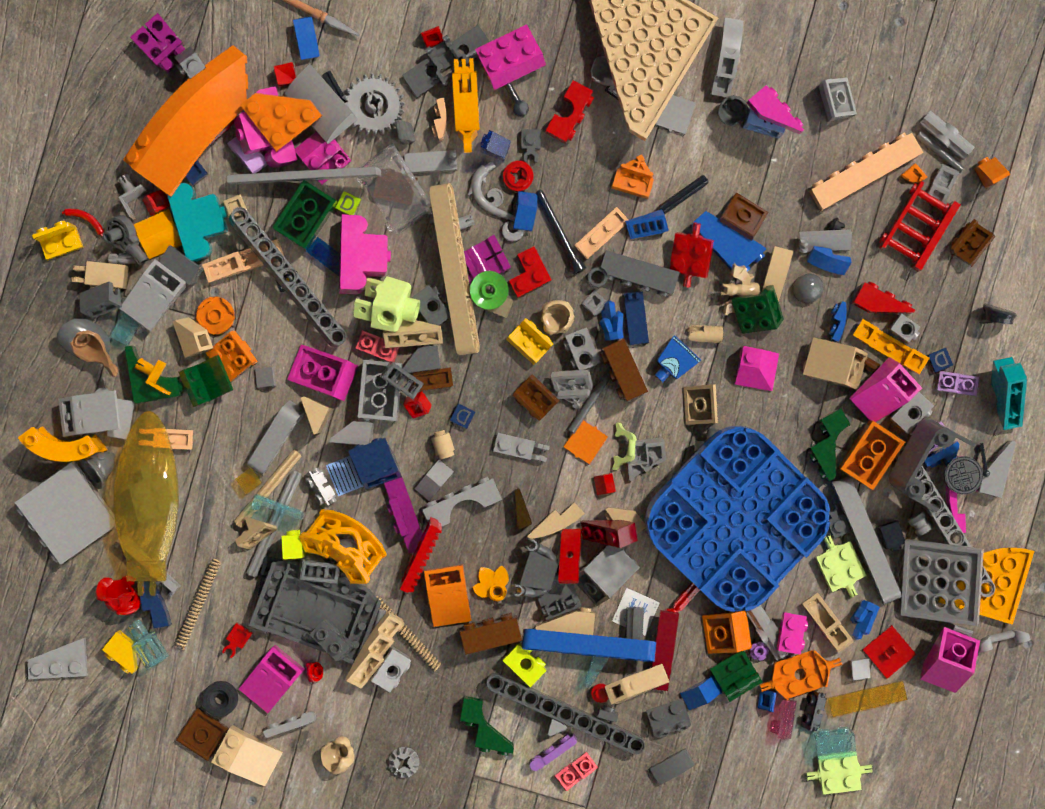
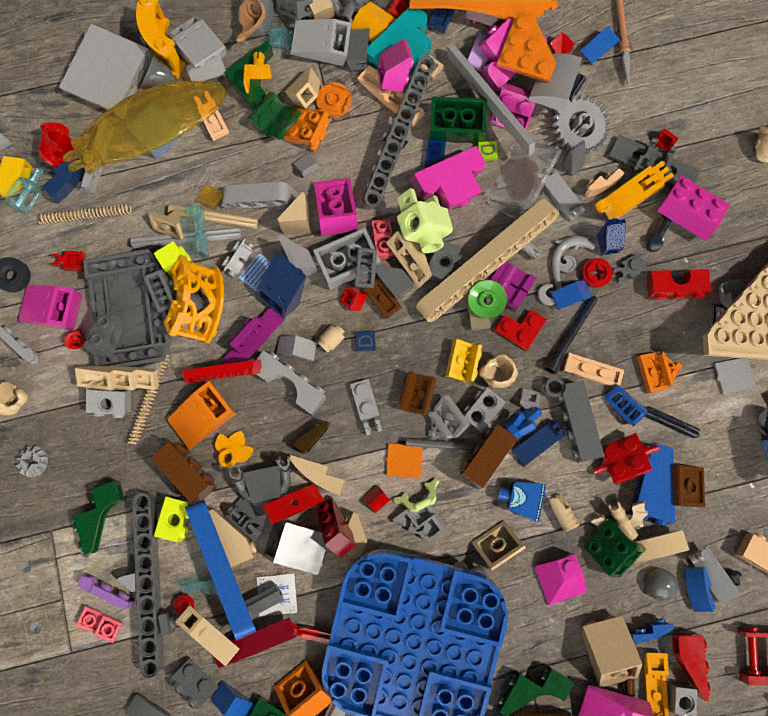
camera: 65 degrees right, 10 degrees down
(224, 245) = (394, 66): none -> dark pink slope

